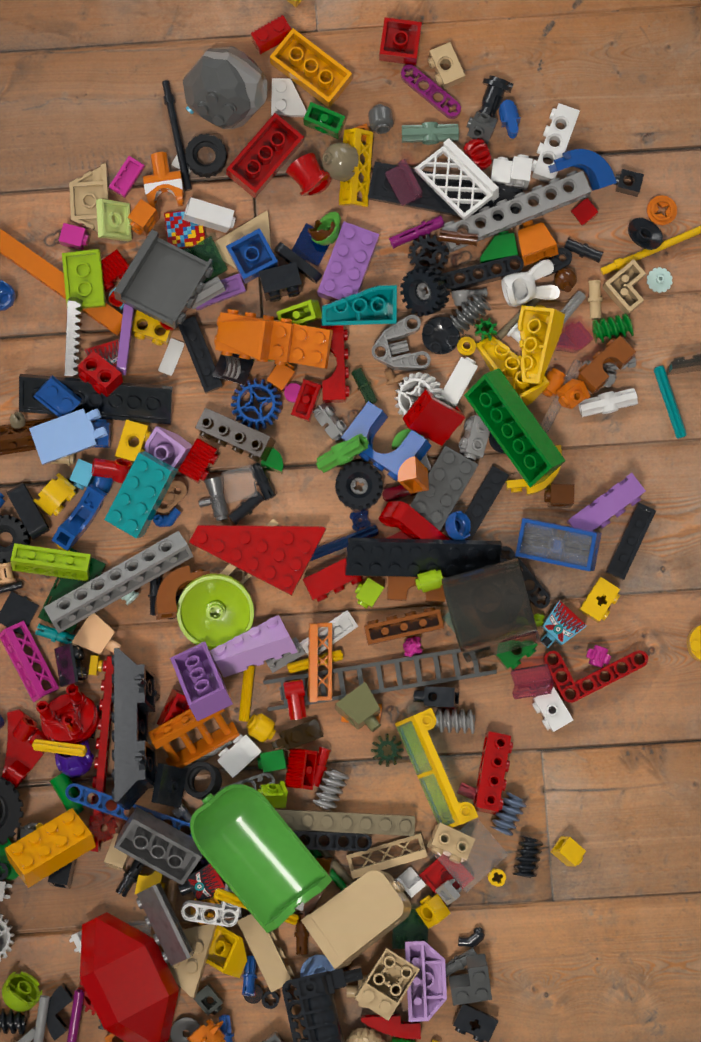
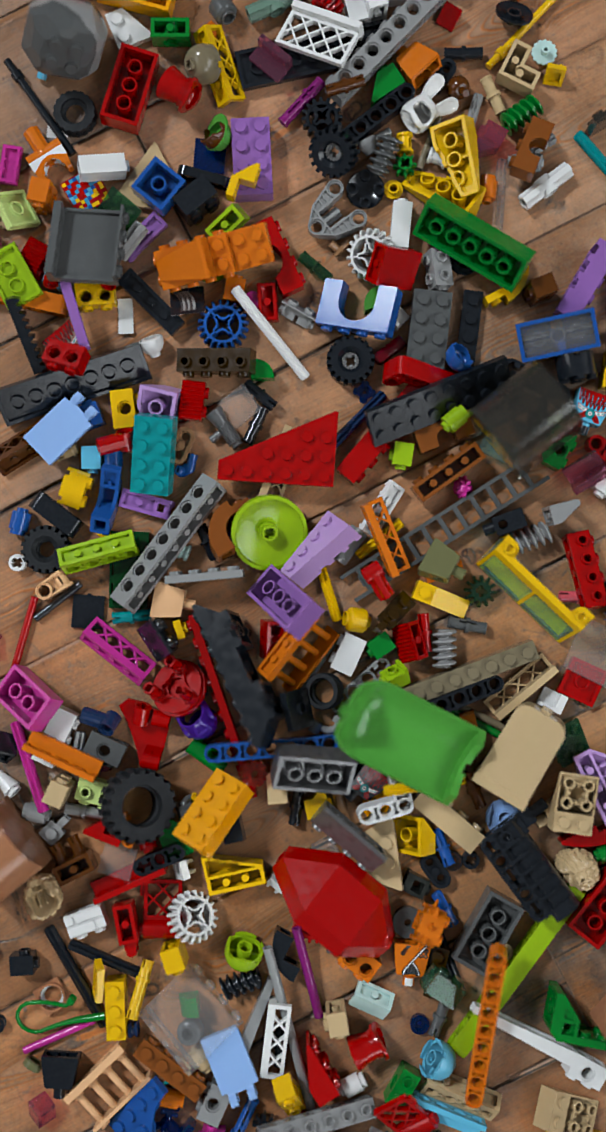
camera: 25 degrees left, 5 degrees up
(17, 420) = (9, 435): dark tan hinge -> none
(42, 913) = (232, 873): none -> yellow wedge
(57, 397) = (36, 397): blue plate -> none
(59, 747) = (181, 718): yellow axle -> none
(114, 536) = (145, 504): none -> medium lavender plate
(132, 623) = (197, 575): none -> light grey plate
(184, 394) = (152, 345): none -> white brick
(232, 994) = (435, 869): none -> black plate
(296, 429) = (269, 332): none -> white axle
(335, 282) = (246, 177): none -> yellow slope
(342, 453) = (323, 335): bright green piece -> none
(347, 742) = (440, 599): none -> yellow slope
(362, 777) = (467, 625): none -> dark grey pin
(369, 306) = (289, 187): teal wedge -> none
(413, 476) = (399, 327): orange brick -> none
(432, 910) = (583, 718): yellow brick -> none
(448, 892) = (591, 695): light grey tile -> none
(450, 843) = (576, 650): tan brick -> none
(490, 707) = (559, 512): none -> light grey tile
(497, 306) = (406, 147): none -> yellow bush
(563, 581) = (576, 366): none -> black brick
(572, 393) = (511, 190): orange brick -> none
(659, 304) = (554, 74): none -> yellow tile

